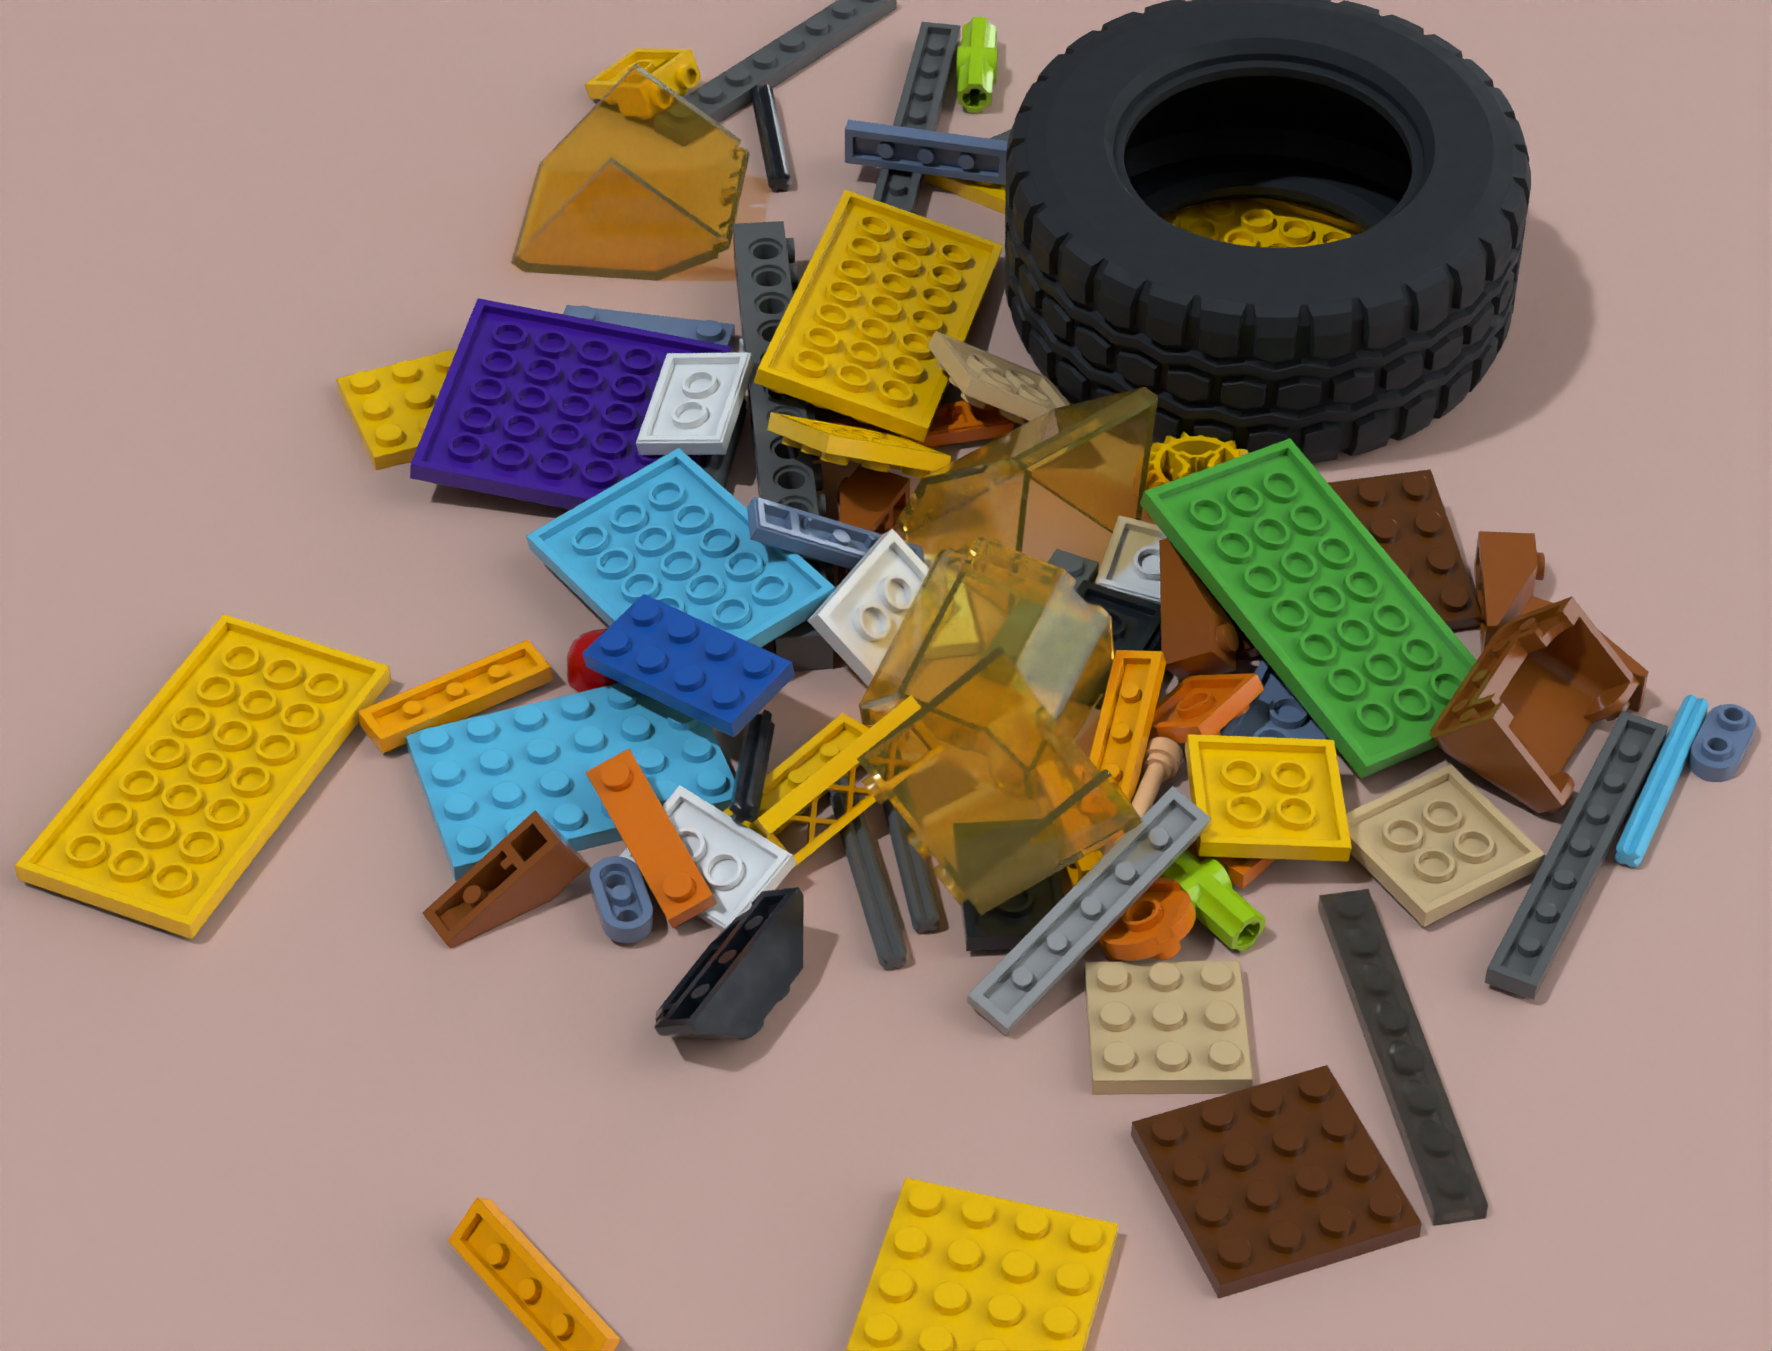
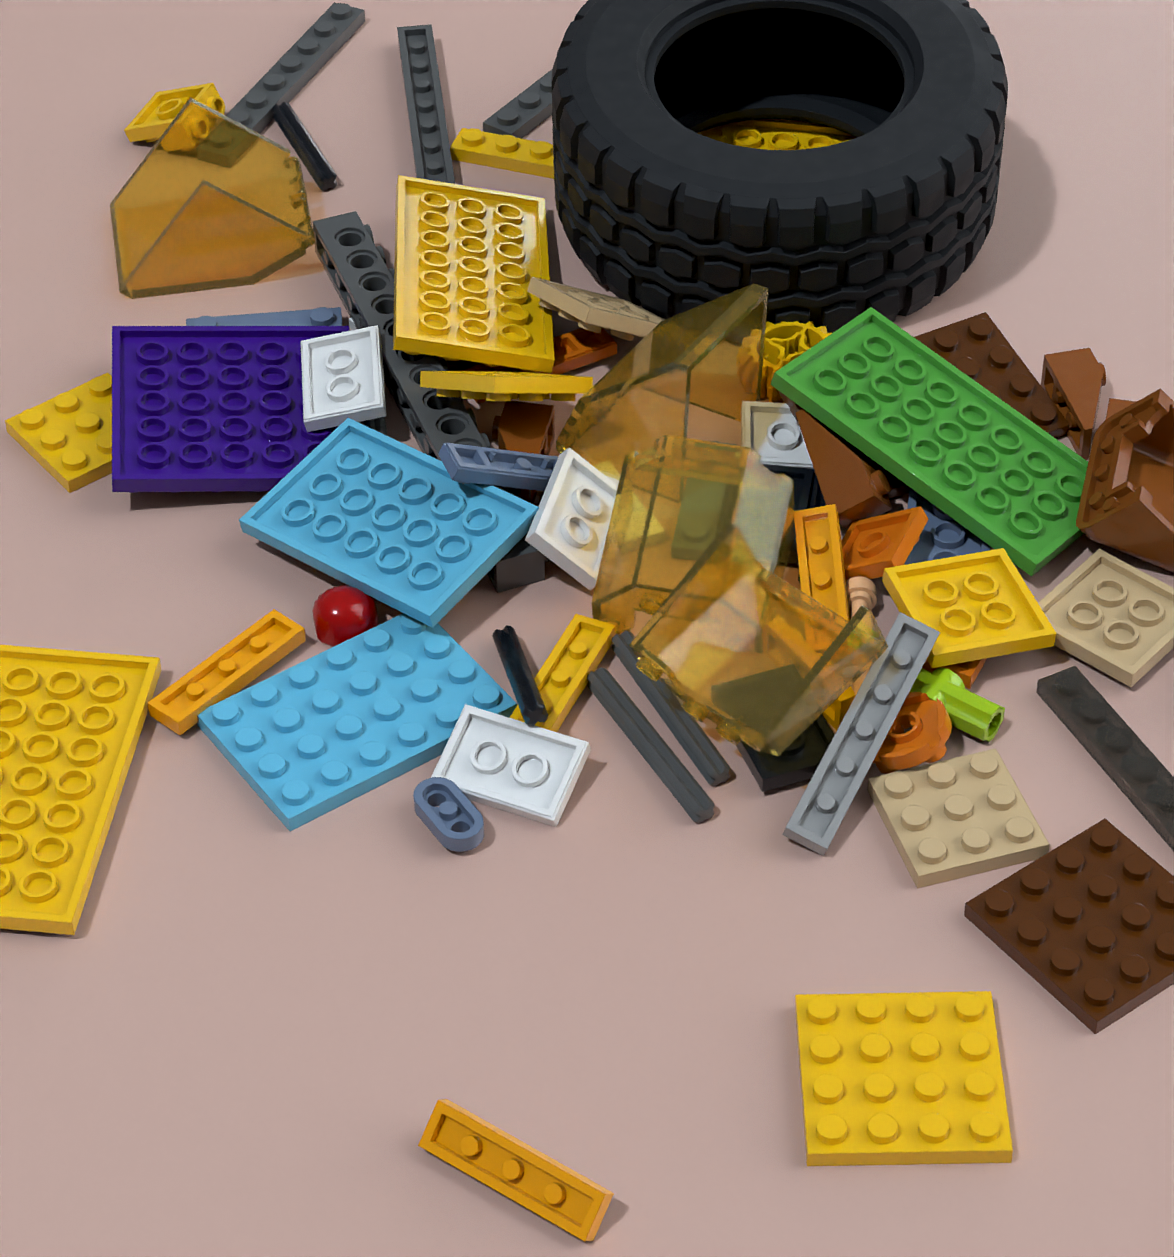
camera: 15 degrees left, 0 degrees up
(507, 882) = (342, 822): dark orange slope -> none
(651, 838) = (457, 755): orange plate -> none
(689, 665) = (436, 599): blue plate -> none
(740, 972) = (580, 852): black wedge -> none
(824, 780) = (597, 668): yellow fence -> none
(925, 152) = (452, 132): sand blue fence -> none
(976, 65) = (458, 55): lime piece -> none

